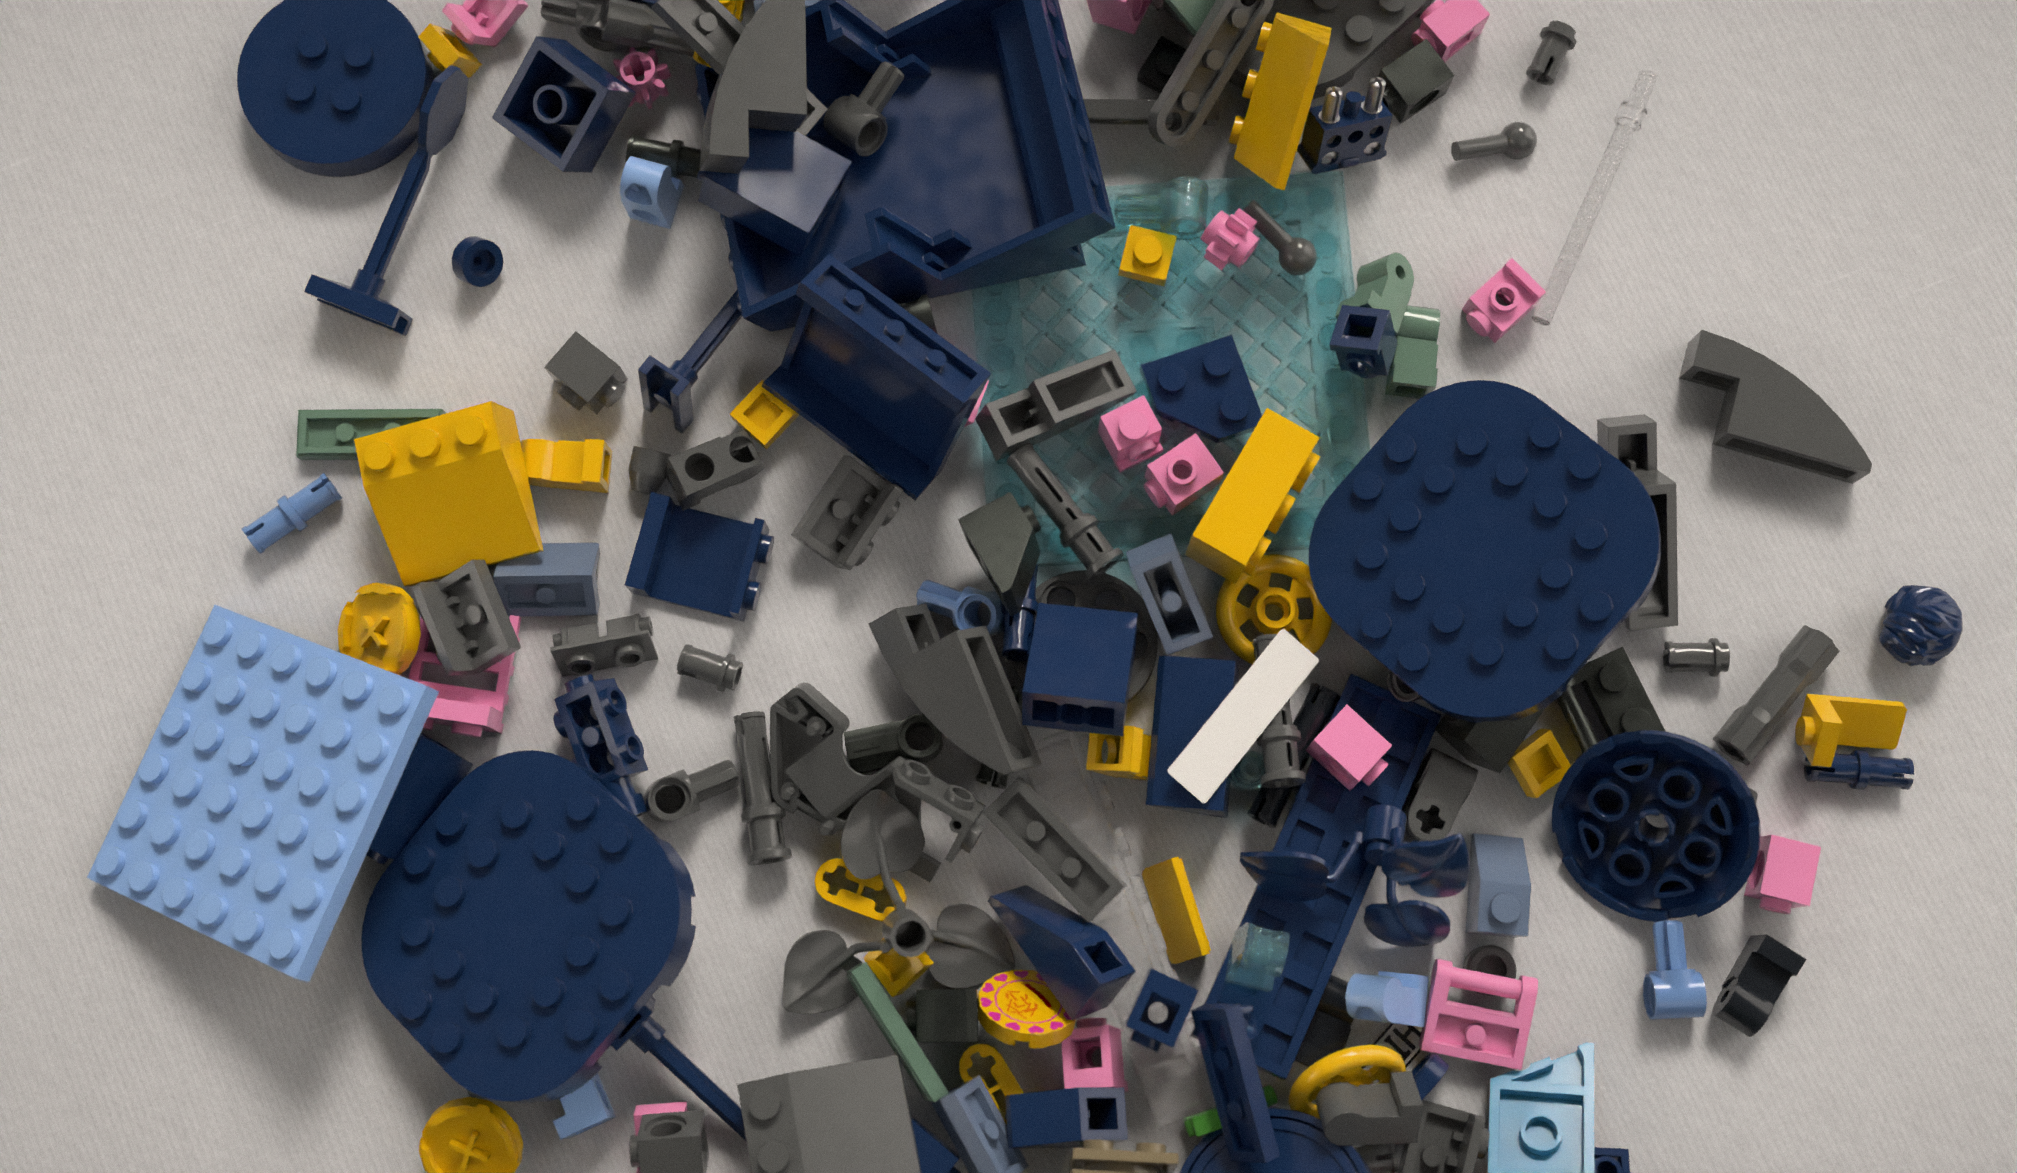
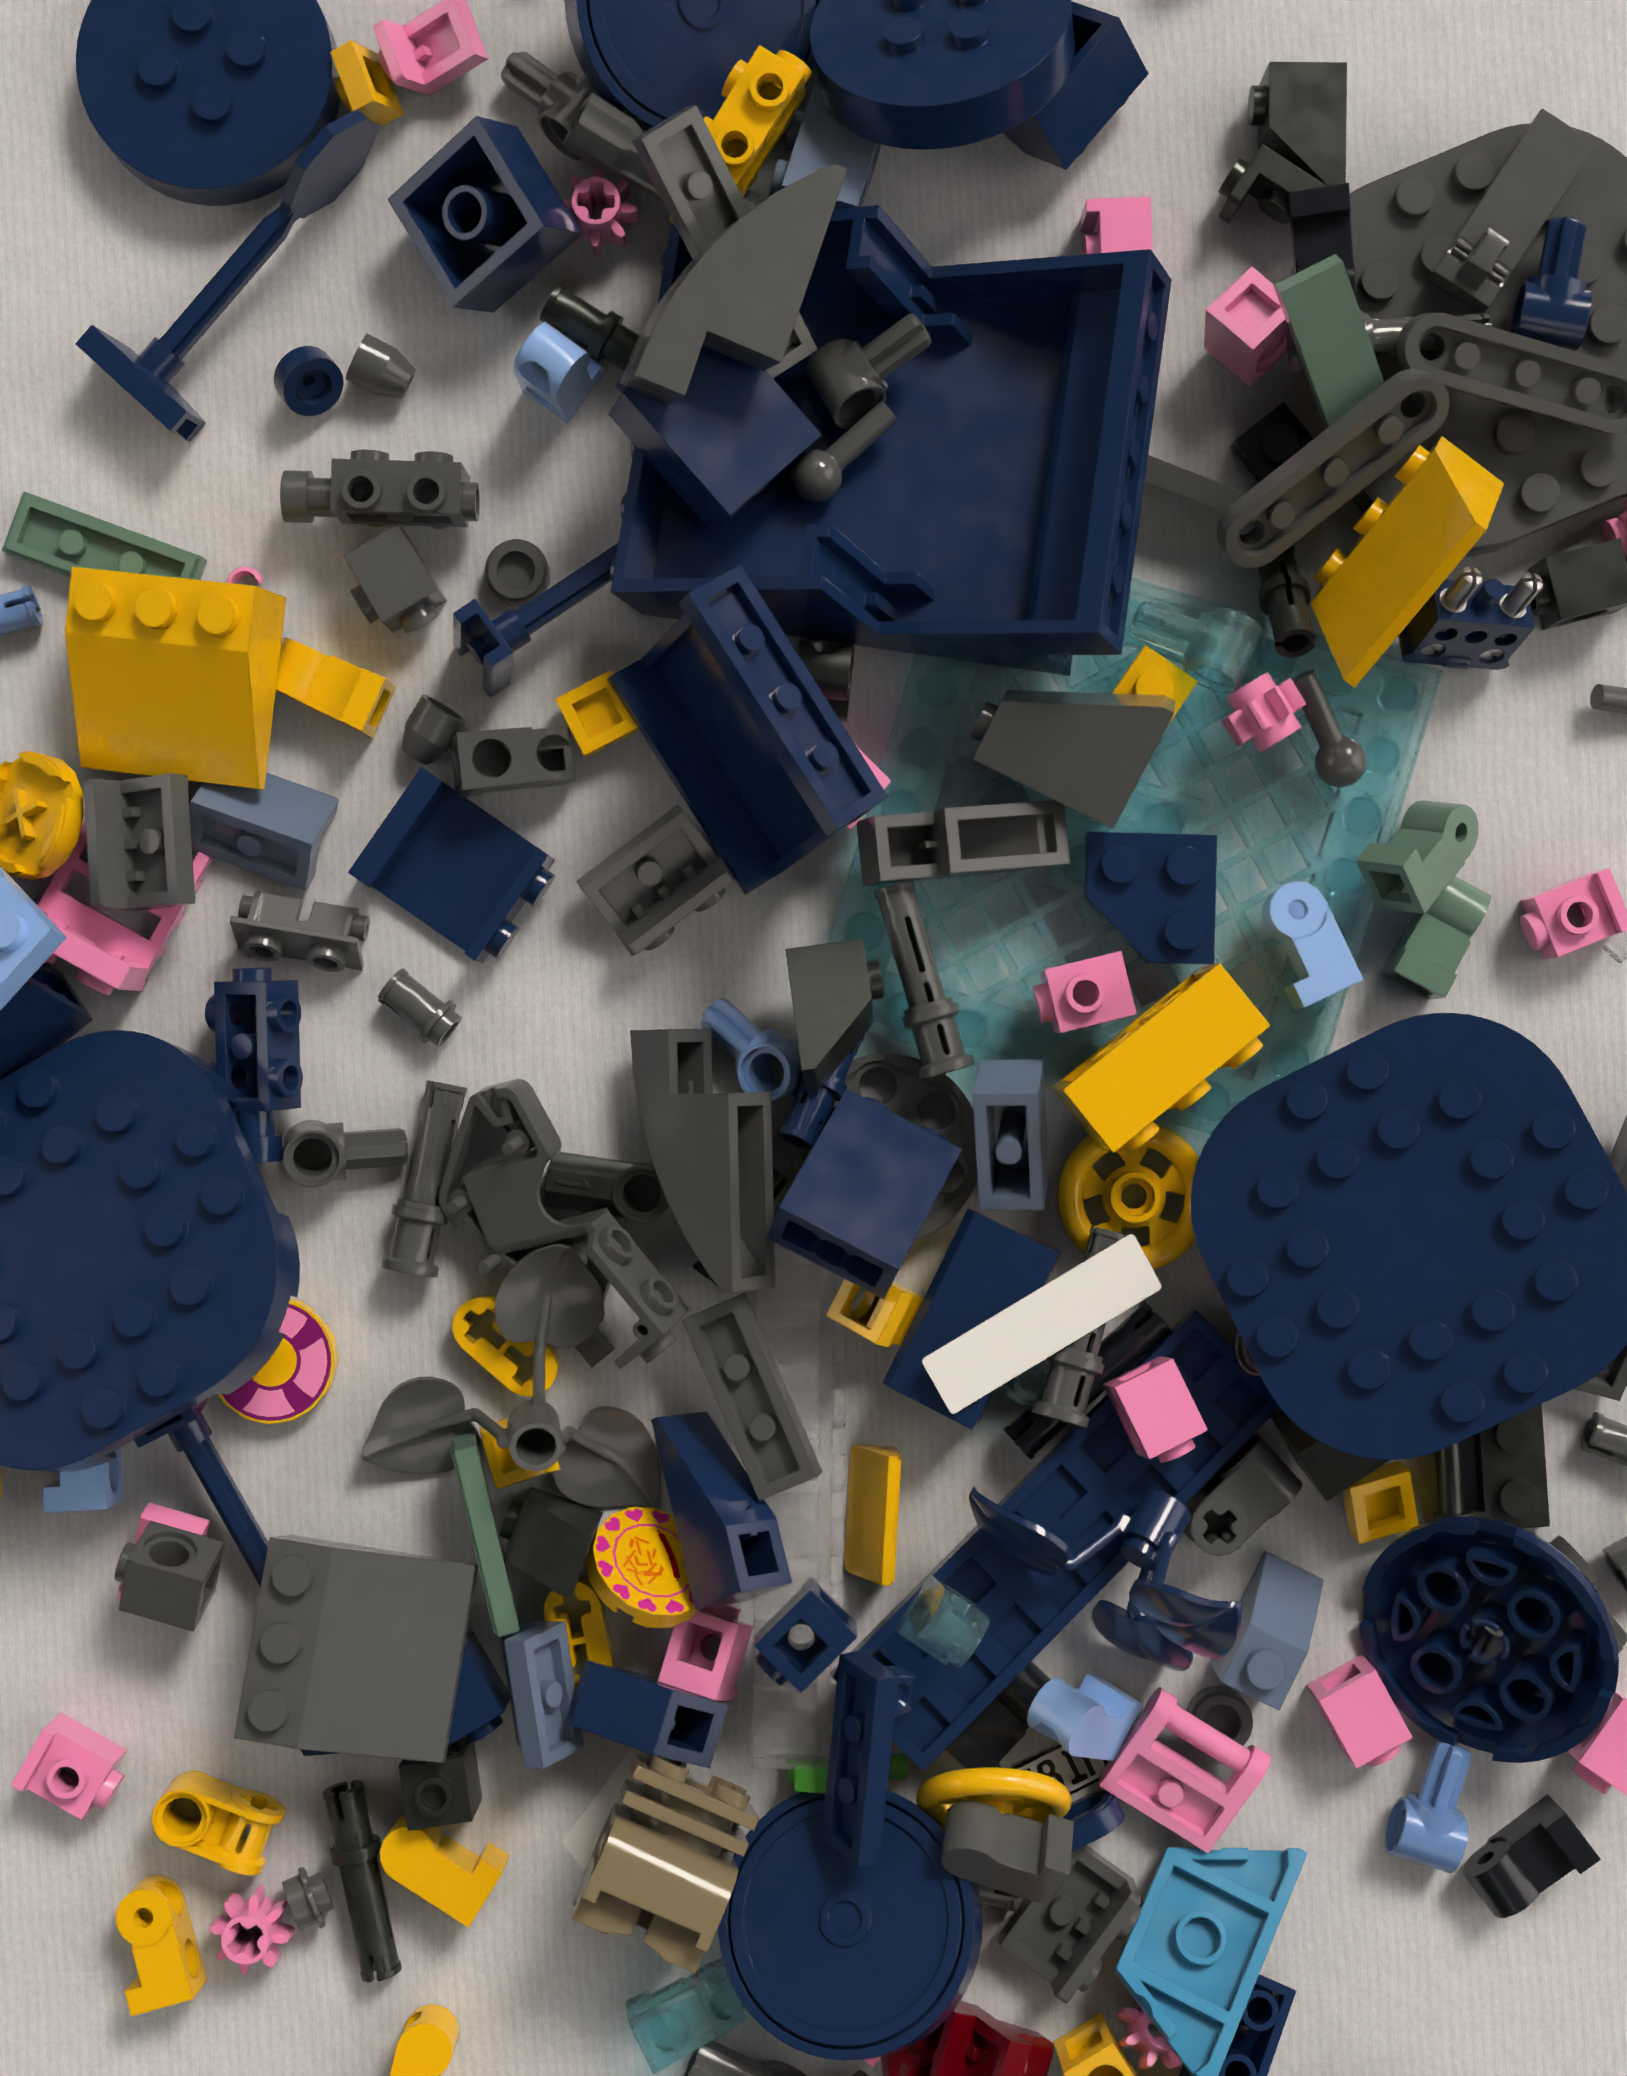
camera: 25 degrees right, 10 degrees up
(525, 236) = (380, 368): none -> dark grey hose
(560, 309) = (396, 491): none -> dark grey brick
(670, 338) = (517, 572): none -> dark grey tile
(708, 973) = (295, 1374): none -> tile
(859, 191) = (818, 473): none -> dark grey bar
(1108, 307) = (1074, 745): none -> dark grey slope
(1131, 433) = (1042, 917): bright pink brick -> none
(1215, 162) = (1285, 600): none -> pearl dark grey pin
(1328, 382) = (1313, 942): none -> light blue leg
(1359, 353) = (1372, 921): dark blue brick -> none
(1589, 922) = (1360, 1713): none -> bright pink brick

